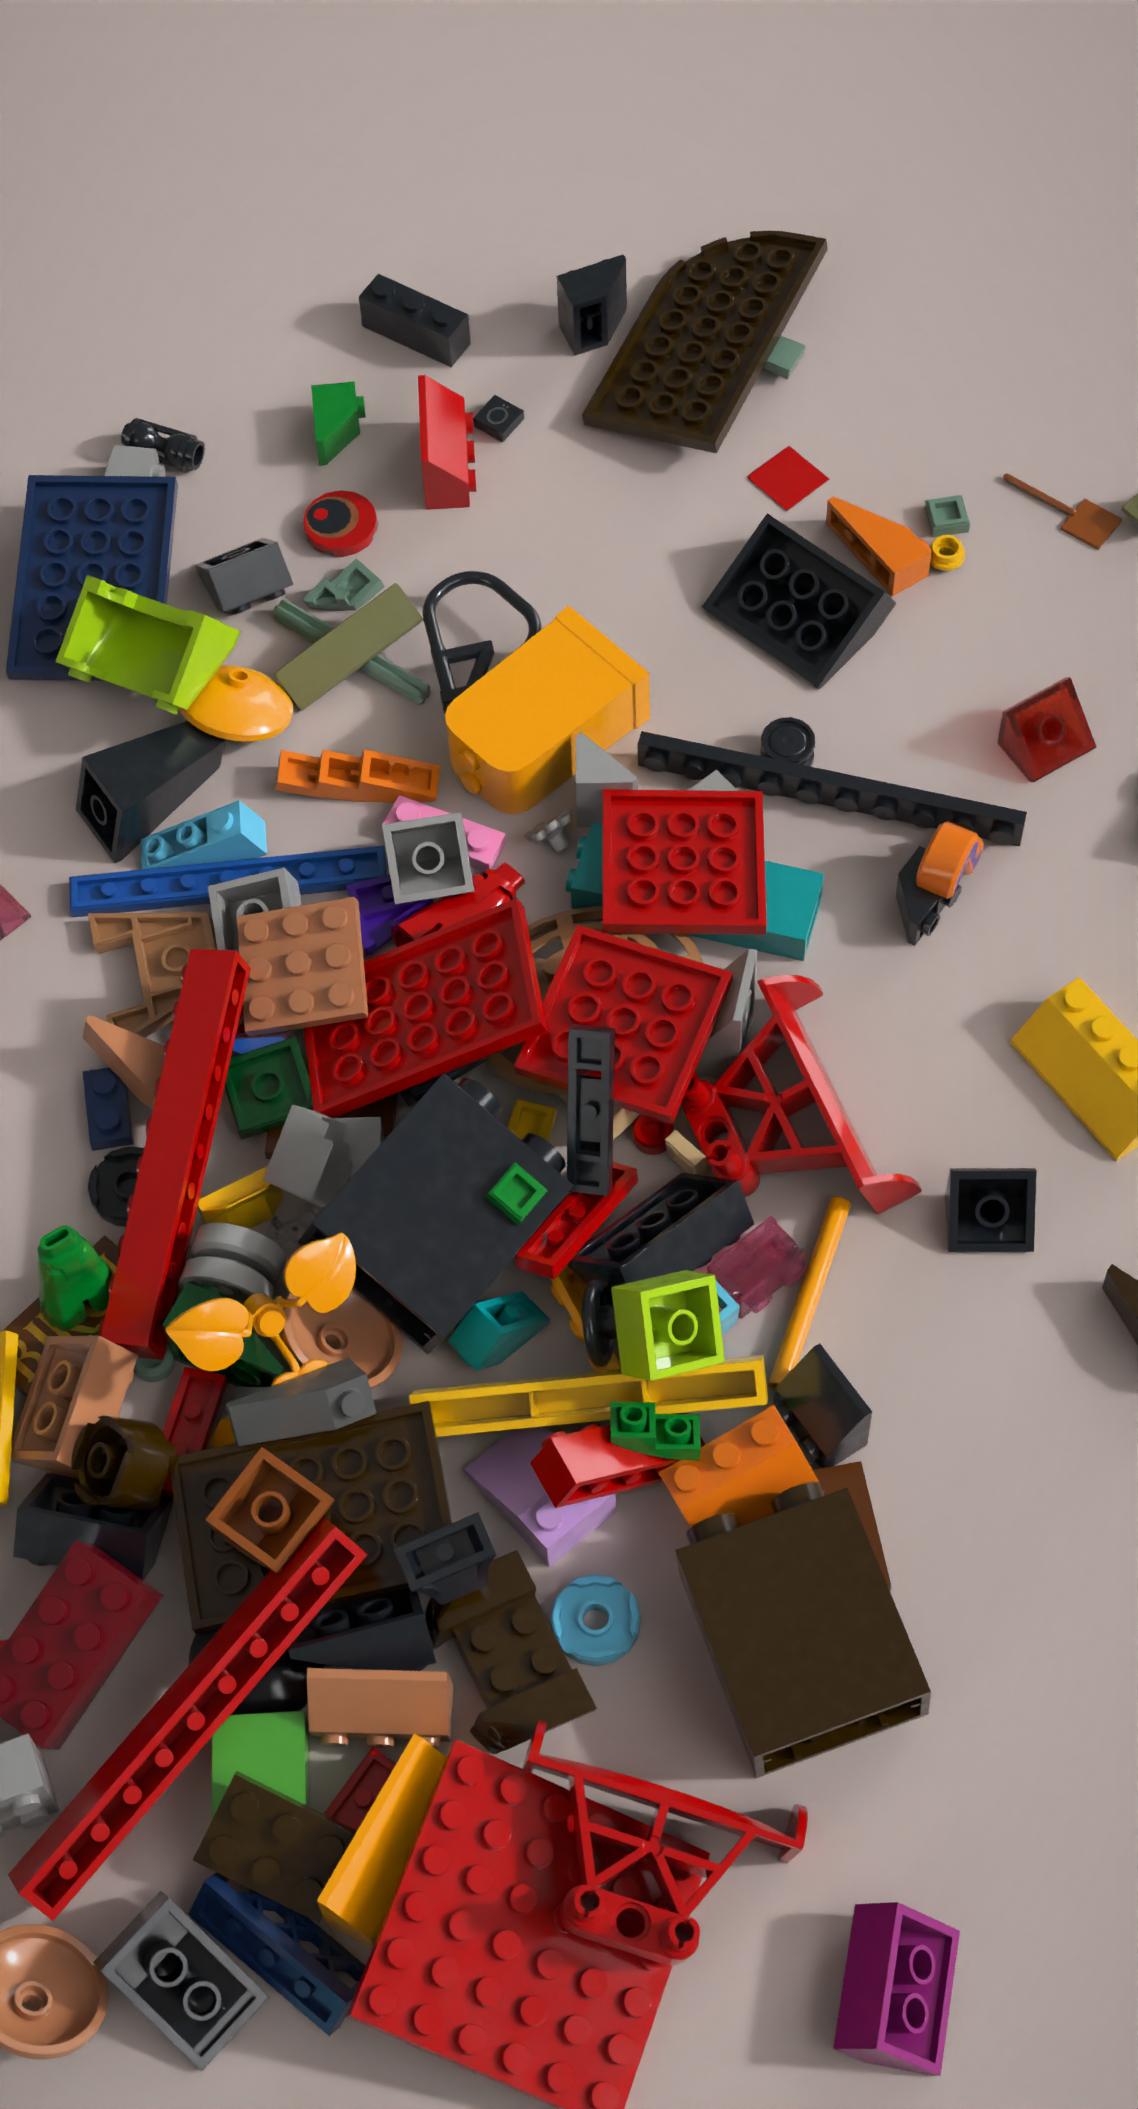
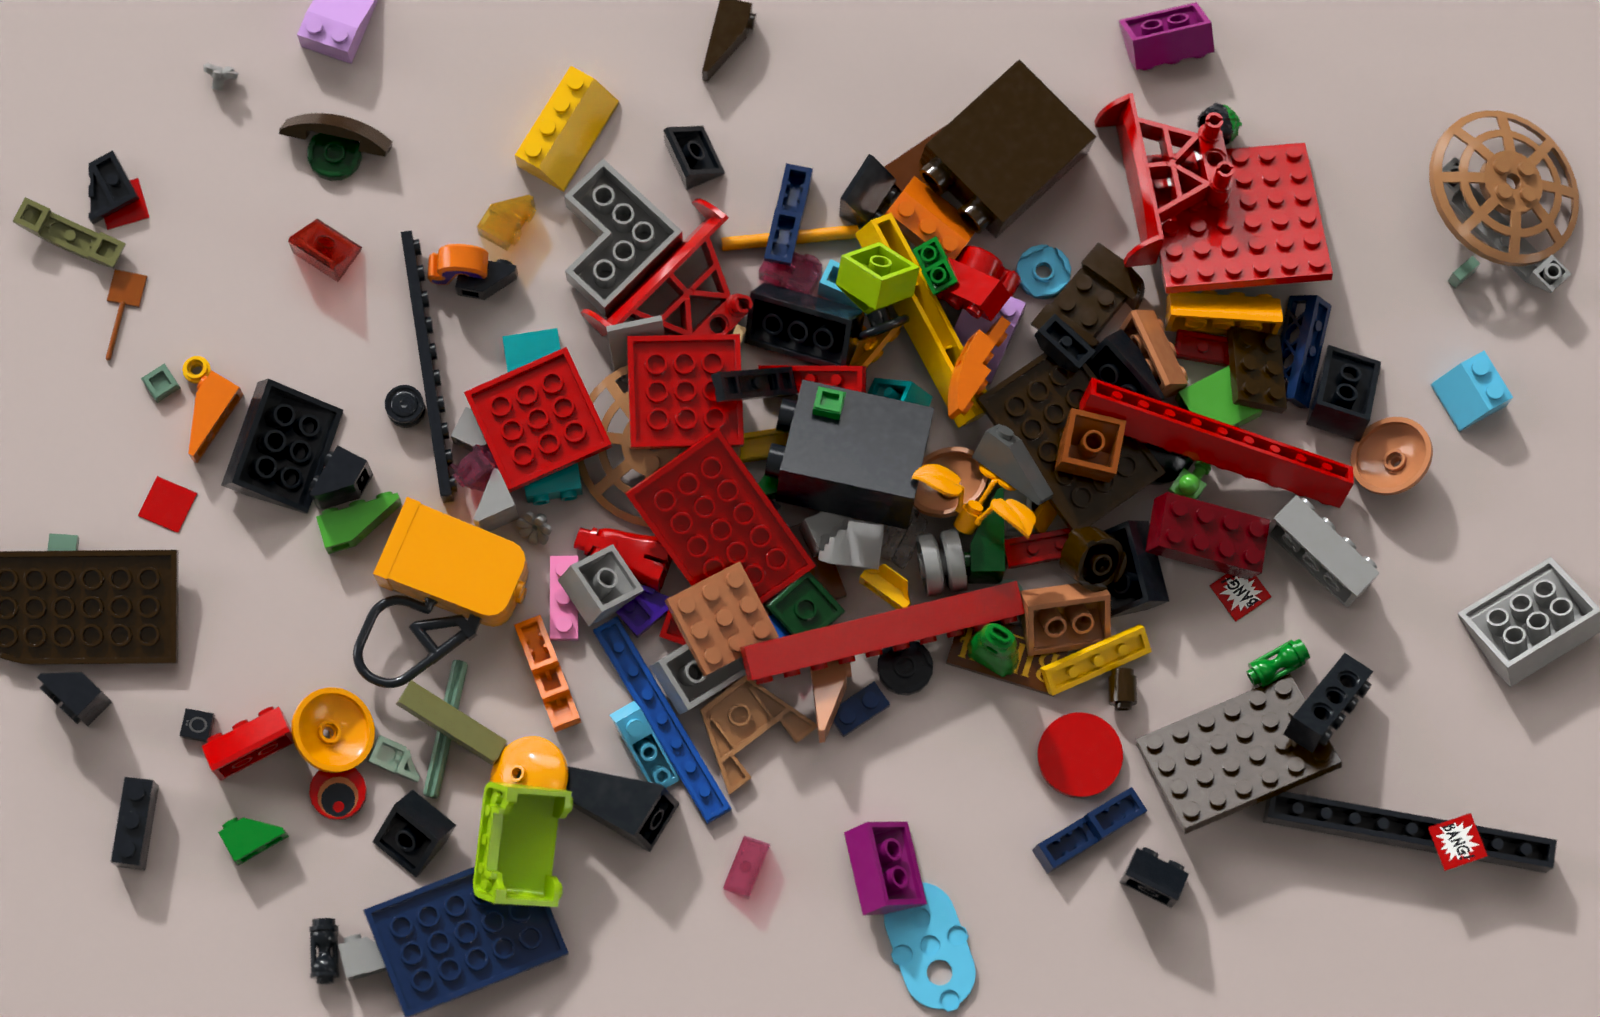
camera: 120 degrees left, 15 degrees up
(157, 1658) = (1190, 484): none -> bright green piece
(390, 514) = (347, 722): none -> light orange dish
(467, 1401) = (971, 368): none -> orange slope
(624, 1526) = (989, 264): none -> red animal
(653, 764) = (475, 468): none -> clear pink hinge
(658, 636) = (350, 525): none -> bright green slope
(705, 1995) = (1230, 120): none -> black piece
(722, 638) = (341, 480): none -> black slope
(839, 1293) = (788, 214): none -> dark blue slope
(902, 1083) = (630, 241): none -> light grey brick
(991, 946) = (505, 219): none -> clear yellow slope

